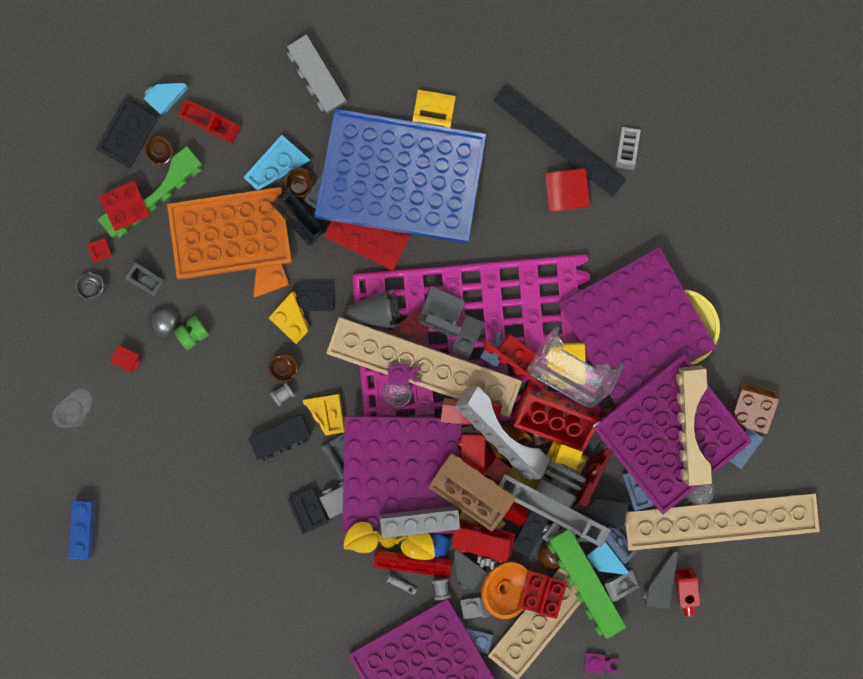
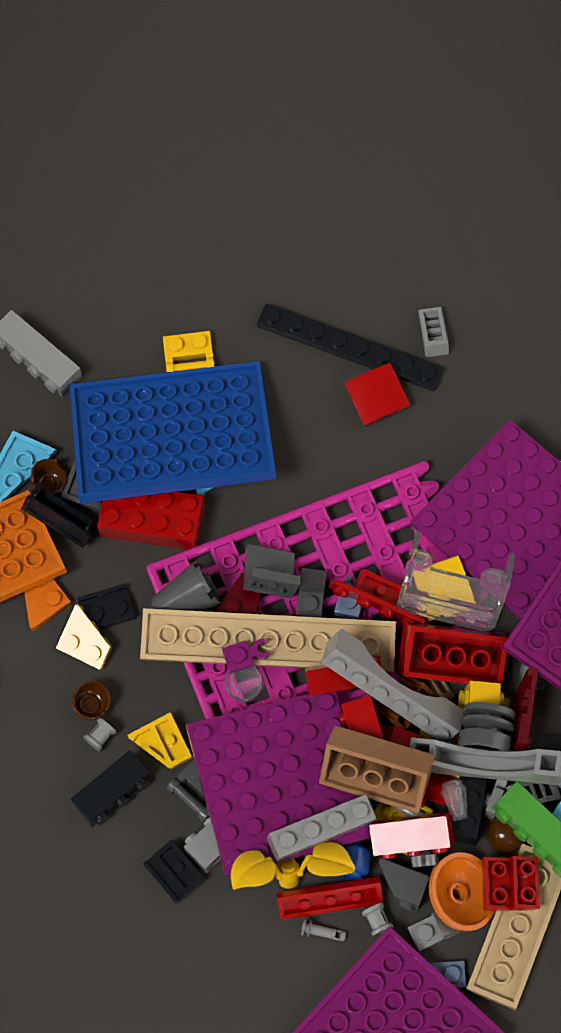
camera: 10 degrees left, 20 degrees down
(522, 527) = (455, 798): none -> clear cone

